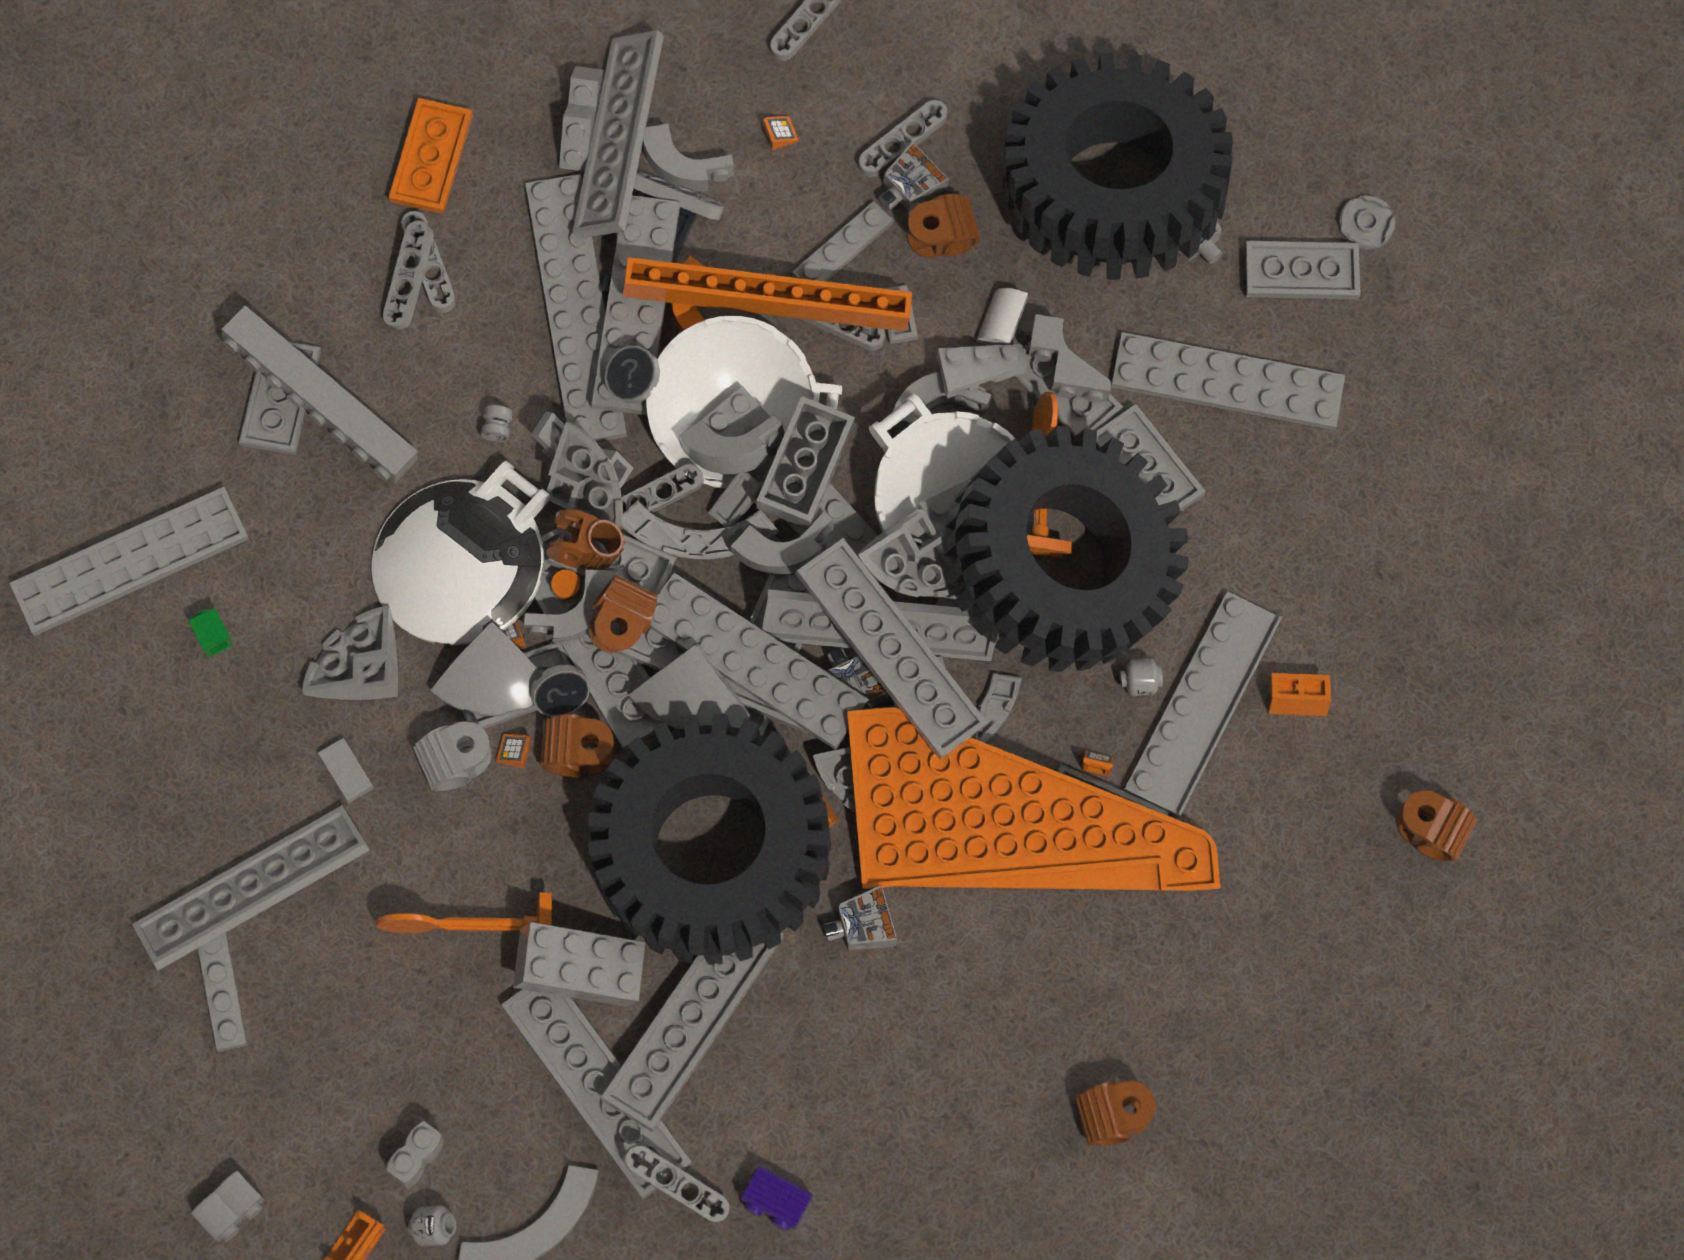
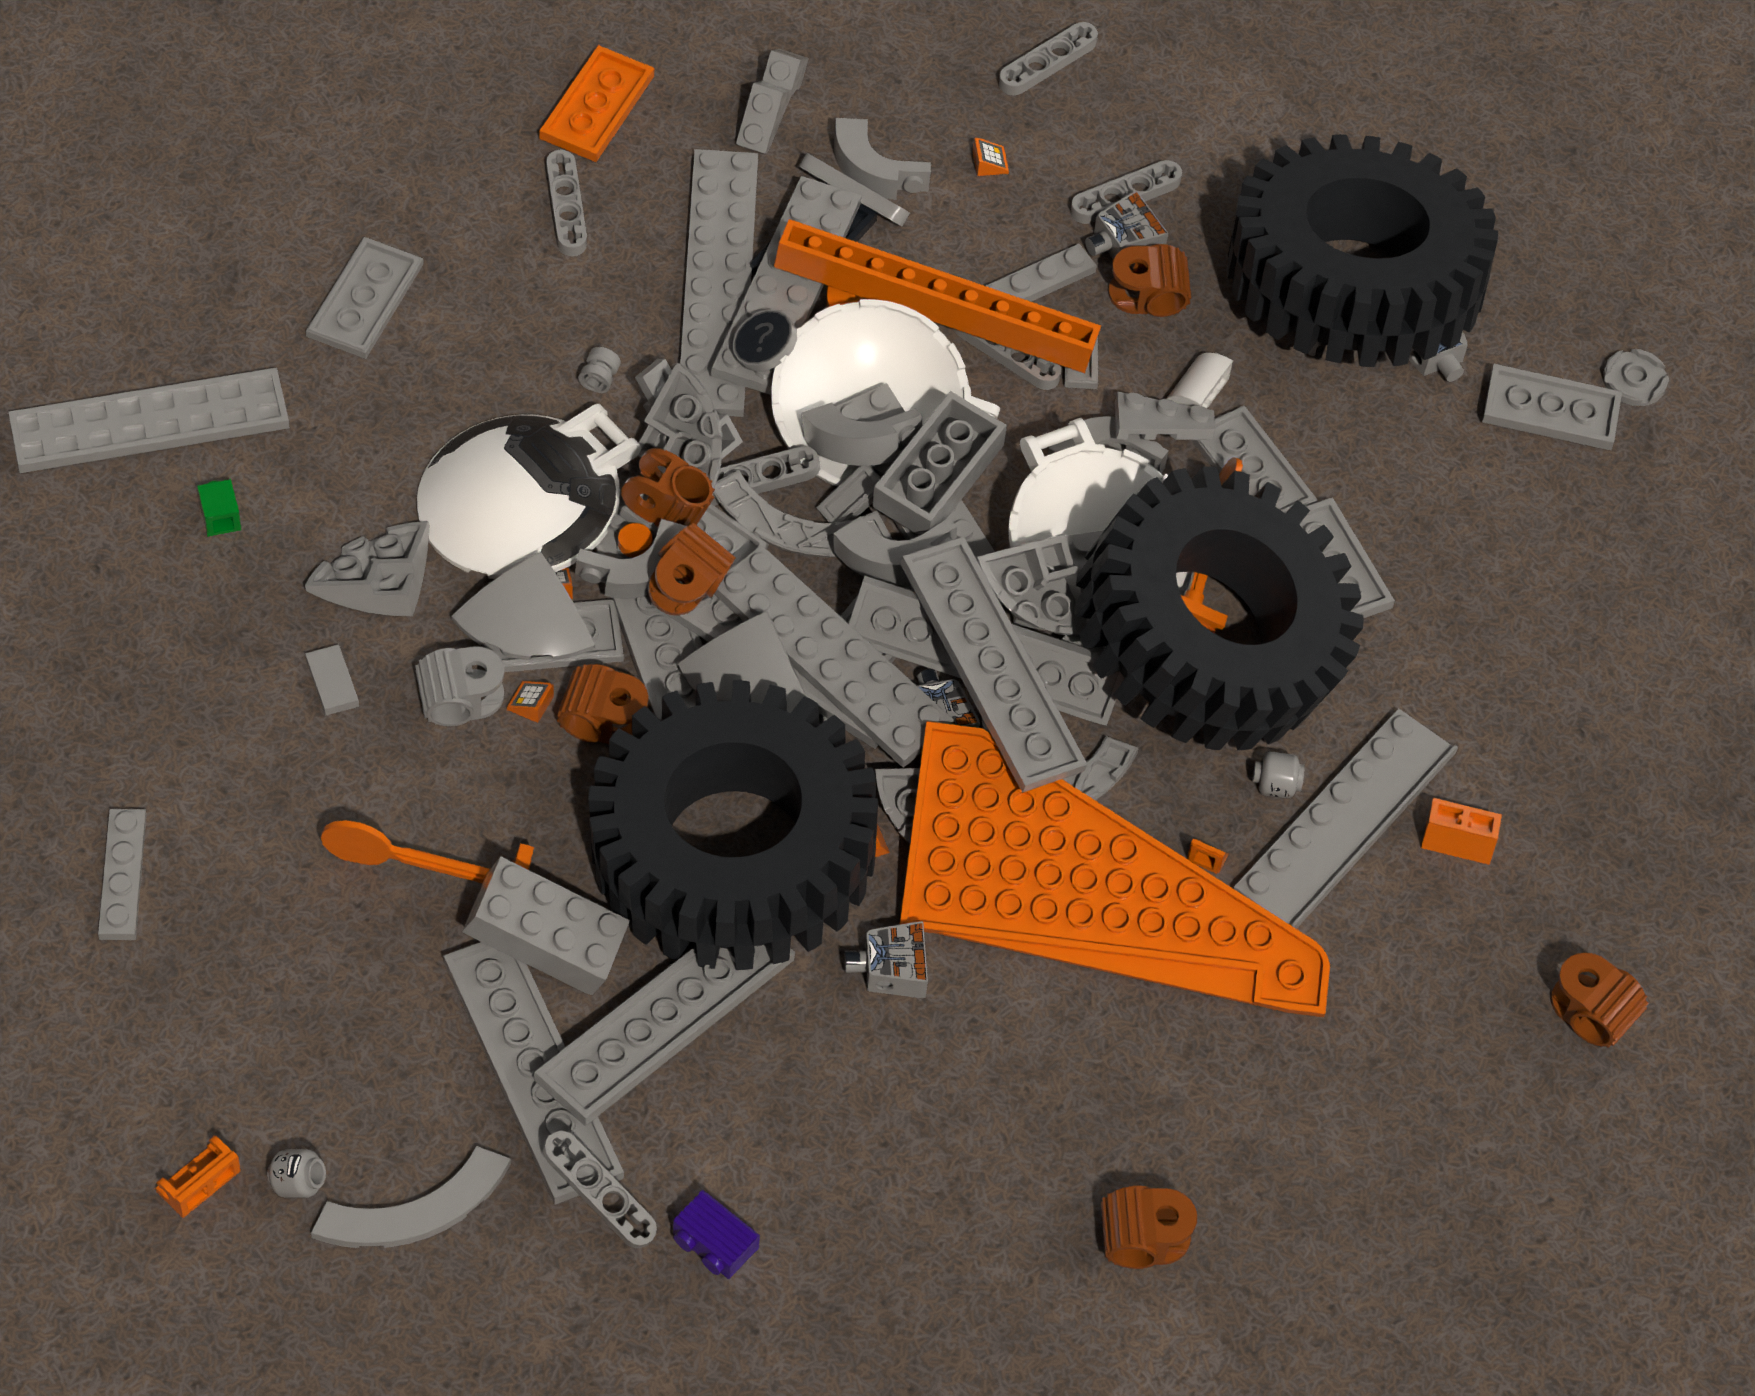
camera: 10 degrees right, 15 degrees down
(228, 1207) = (61, 1102): light grey brick -> none
(250, 887) = (187, 771): light grey plate -> none
(319, 395) = (409, 300): light grey brick -> none
(403, 274) = (536, 206): light grey beam -> none
(409, 1161) = (304, 1089): light grey brick -> none
(560, 691) = (600, 639): black tile -> none
(618, 134) = (808, 119): light grey plate -> none
(1072, 374) = (1265, 449): light grey arch -> none
(1228, 381) = (1444, 500): light grey plate -> none

